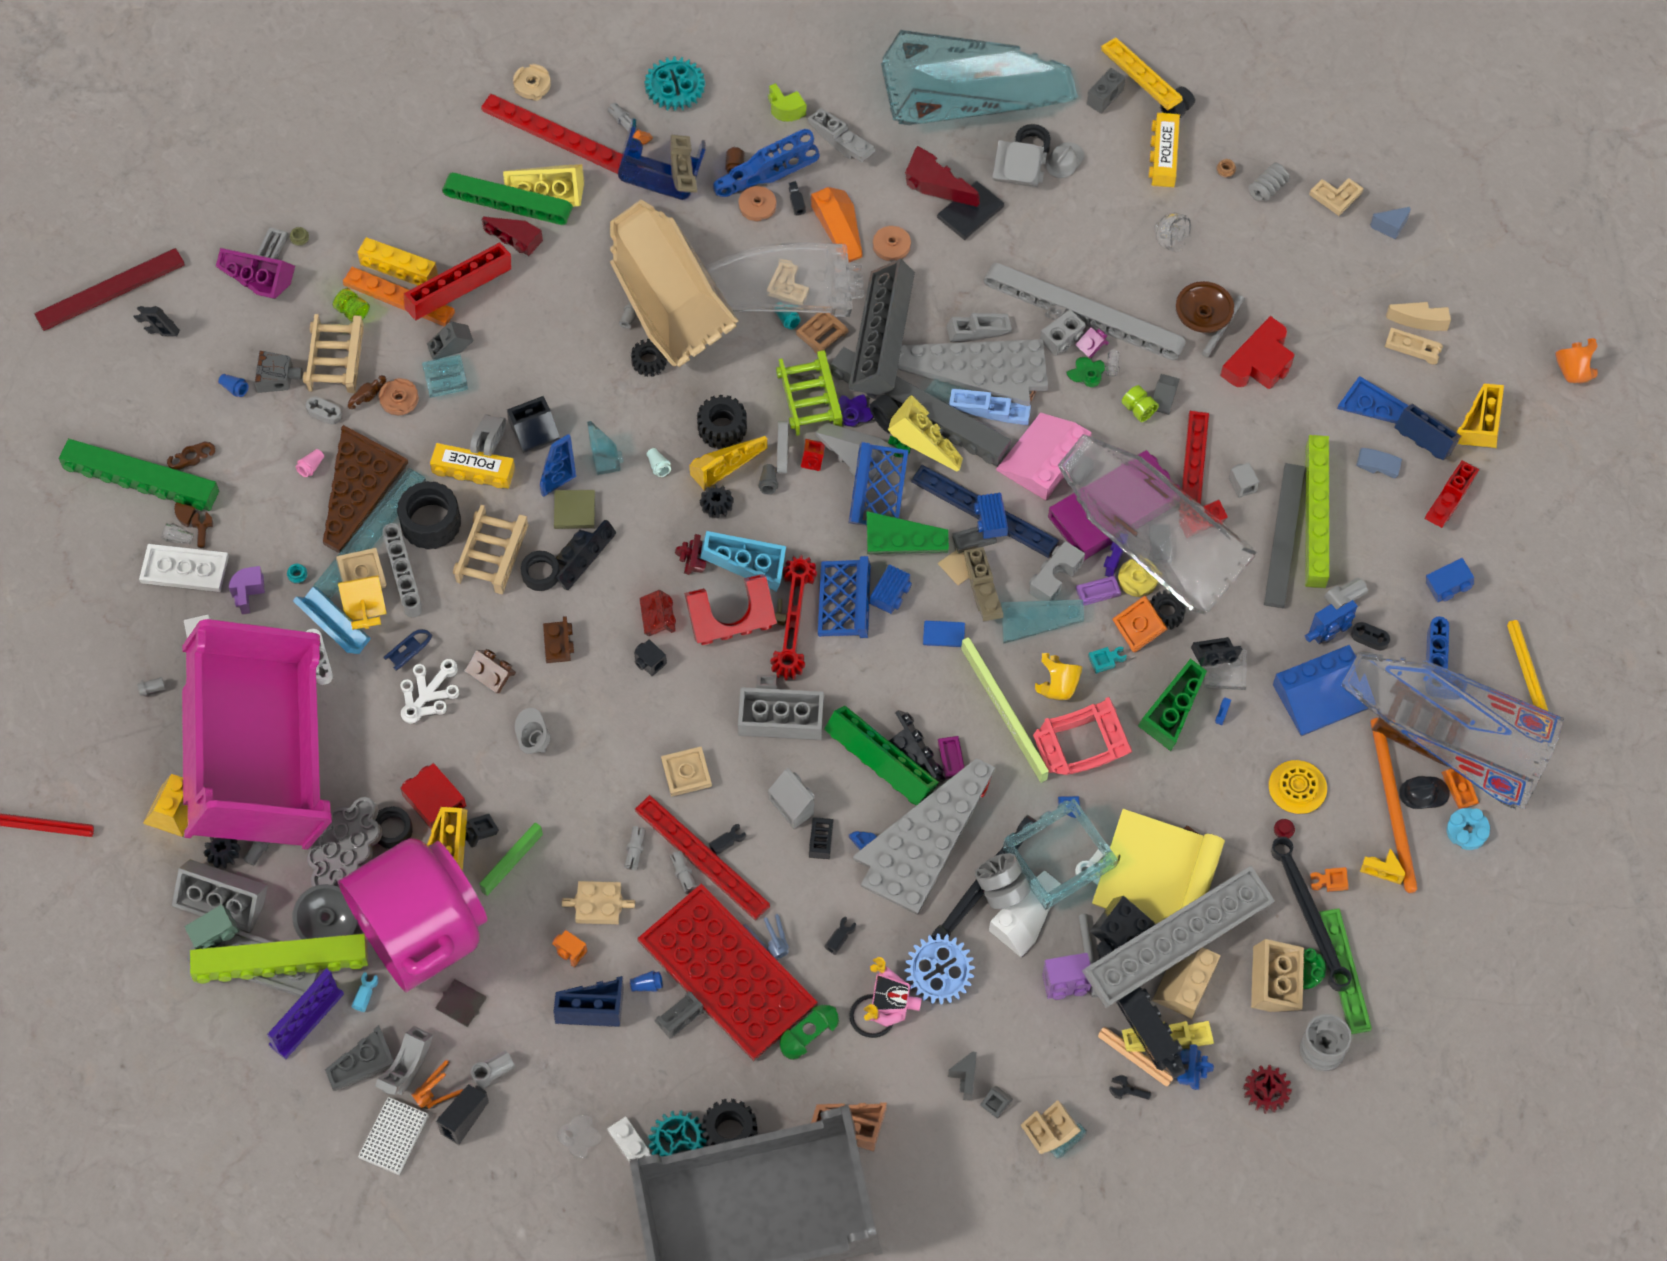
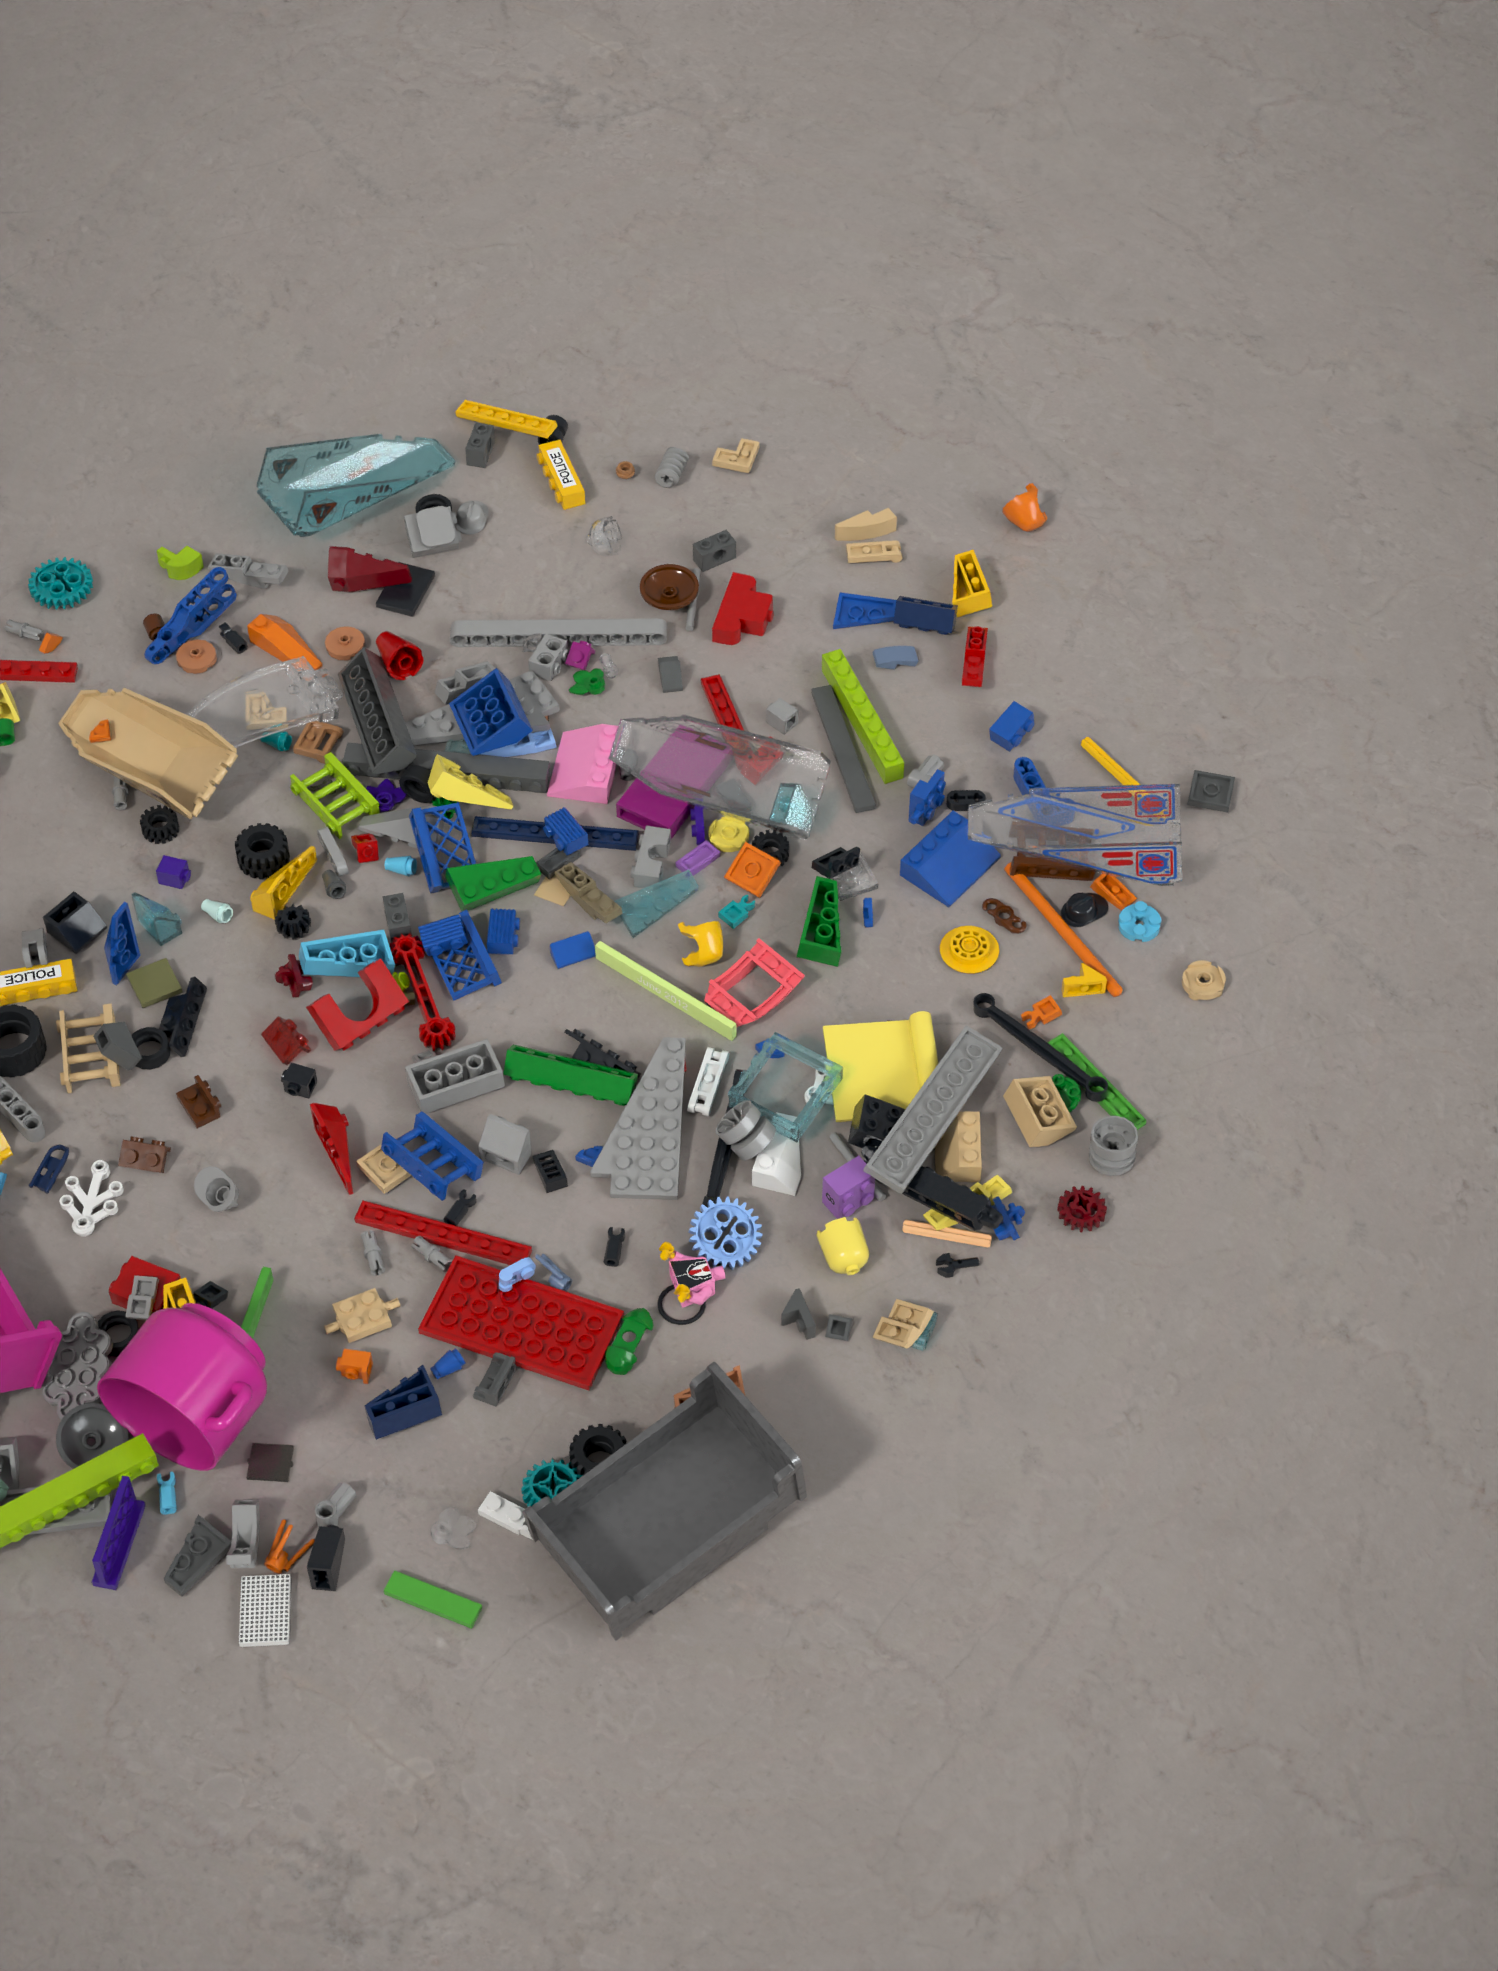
camera: 25 degrees left, 10 degrees down
(423, 807) = (142, 1298): none -> light grey slope
(511, 560) = (117, 1044): none -> dark grey slope
(532, 1192) = (433, 1599): none -> bright green tile
(638, 409) = (173, 872): none -> dark purple brick
(639, 247) = (100, 732): none -> orange tile
(649, 172) = (106, 665): clear blue windscreen -> none
(654, 718) = (332, 1133): none -> red wedge
(681, 164) = (105, 645): dark tan slope -> none
(739, 767) = (437, 1139): none -> blue fence
(748, 925) = (512, 1274): none -> light blue plate
(779, 600) = (402, 980): none -> lime plate
(806, 536) = (396, 915): none -> dark grey brick
(835, 572) = (443, 935): none -> blue brick
(836, 486) = (402, 865): none -> medium azure cone
(930, 277) = (399, 655): none -> red cone
(951, 756) = (635, 1050): magenta tile -> none
(980, 372) = (490, 714): none -> blue slope
(999, 814) = (708, 1081): none -> white plate
(1035, 1030) = (844, 1246): none -> light yellow cylinder
(1138, 402) = (649, 687): lime wheel -> none
(1201, 580) = (791, 806): none -> clear light blue slope
(1265, 285) = (714, 550): none -> dark grey brick
(1284, 828) = (976, 987): dark red plate -> none
(1346, 776) = (1002, 908): none -> reddish brown piece
(1390, 221) = (798, 460): sand blue slope -> none
(1506, 907) = (1199, 990): none -> tan plate
(1605, 725) = (1211, 791): none -> dark grey plate

